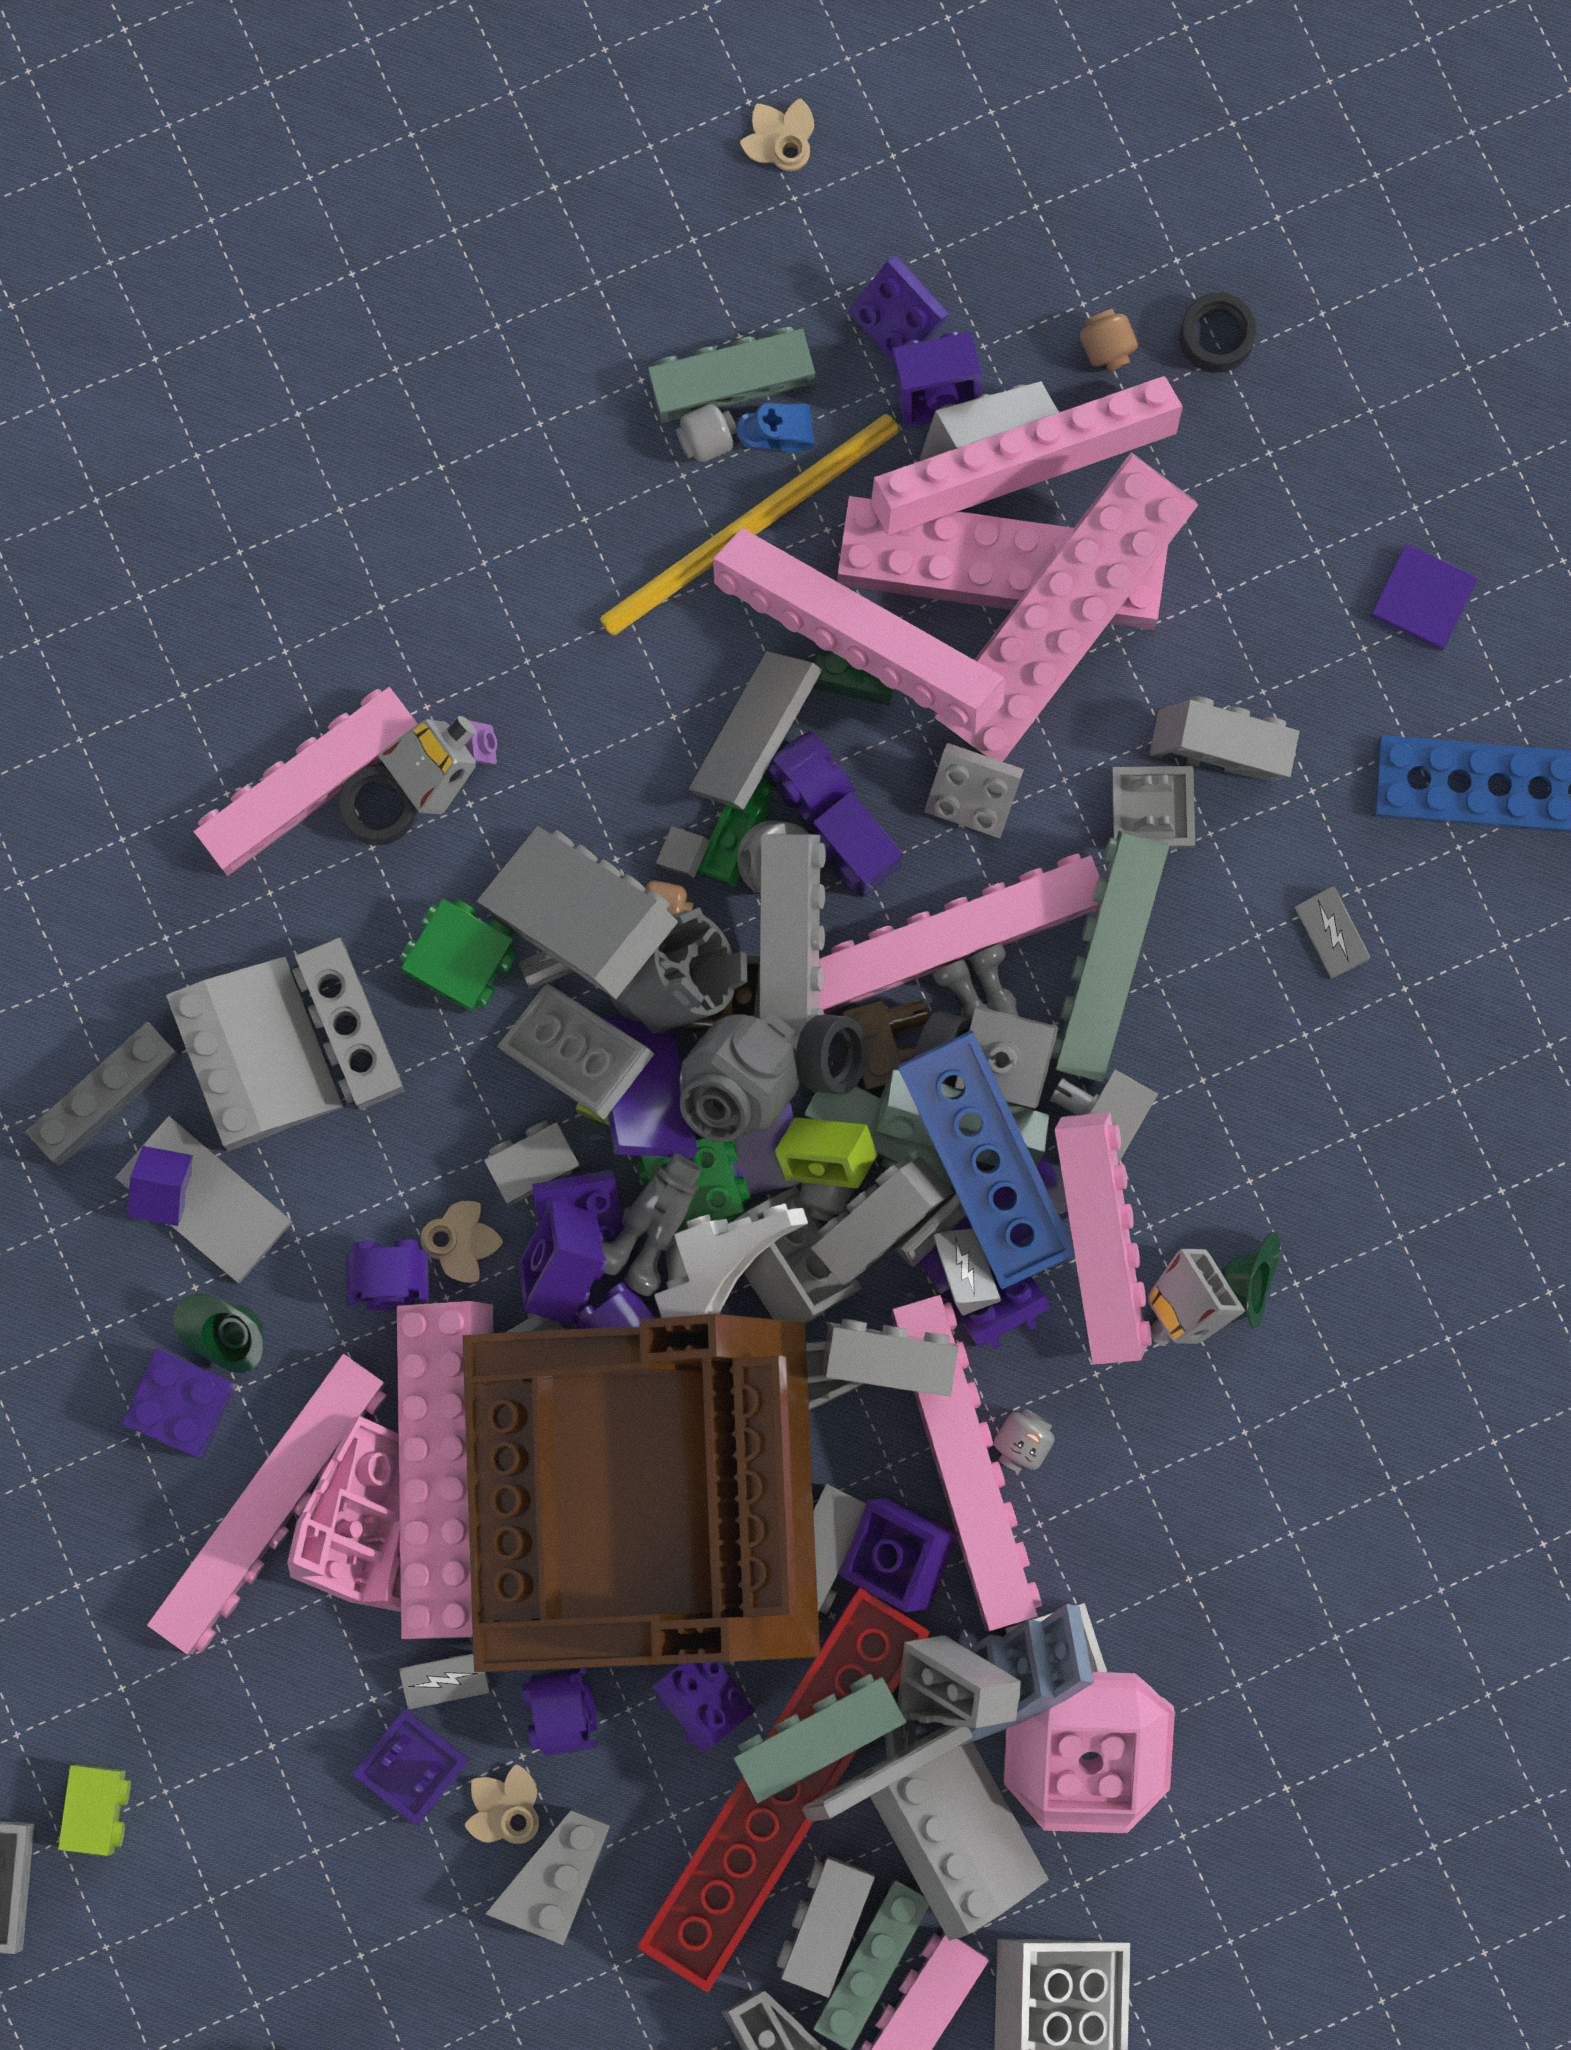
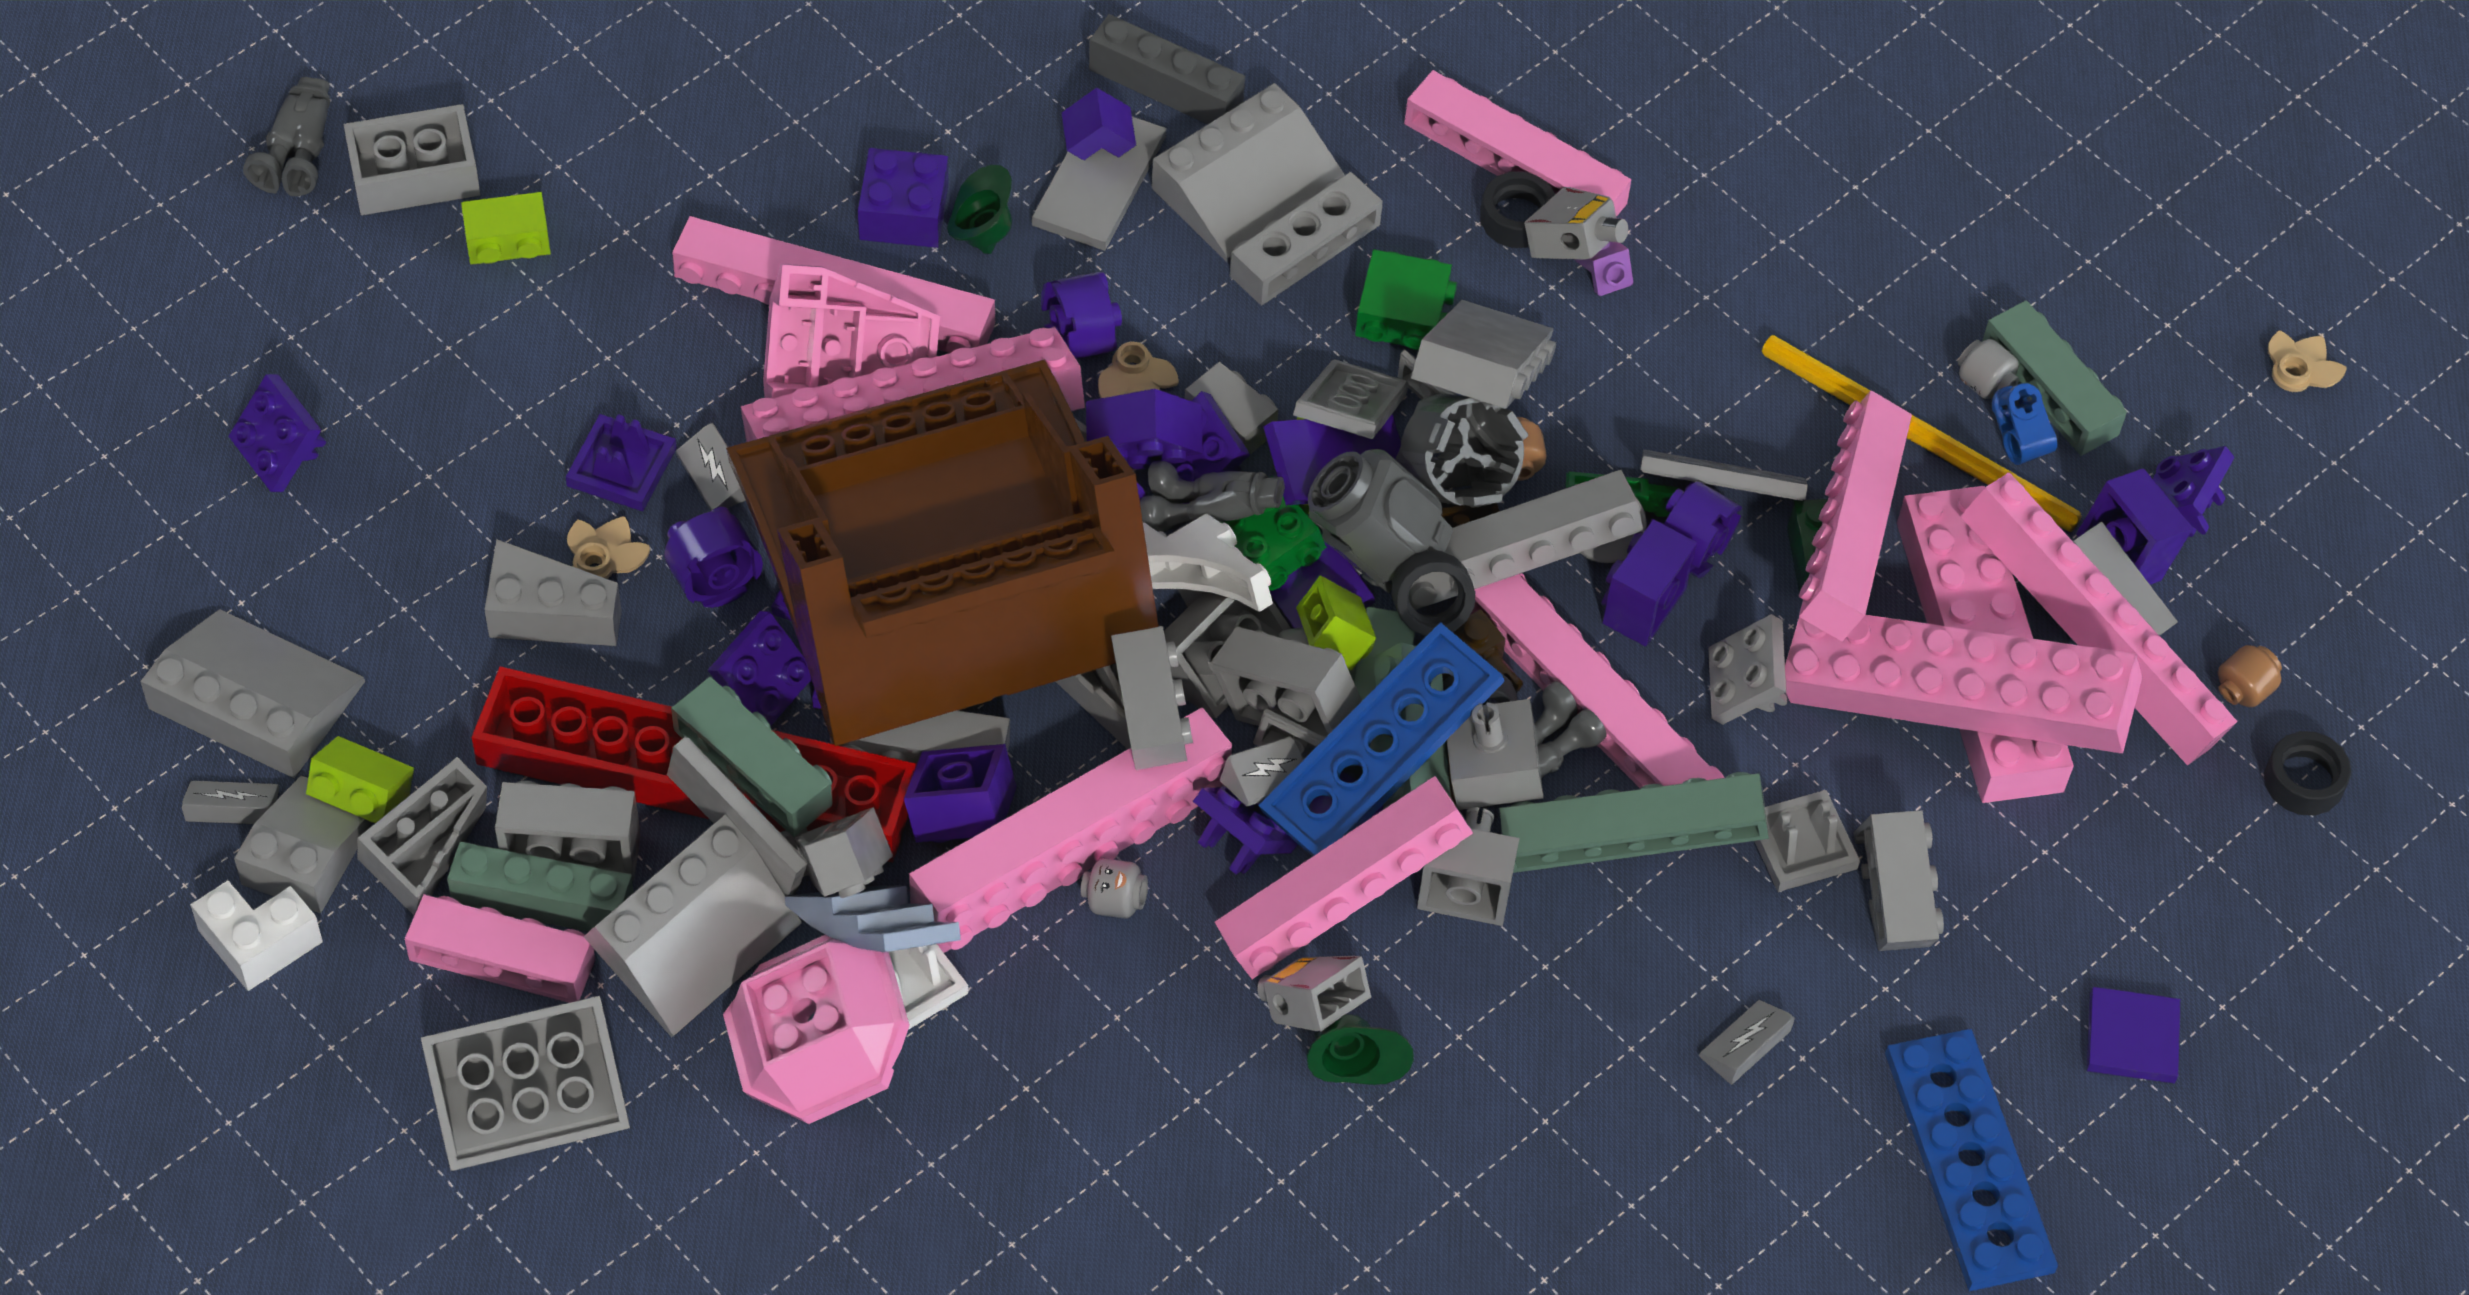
camera: 70 degrees right, 25 degrees down
(682, 852) = (1580, 456): light grey tile -> none

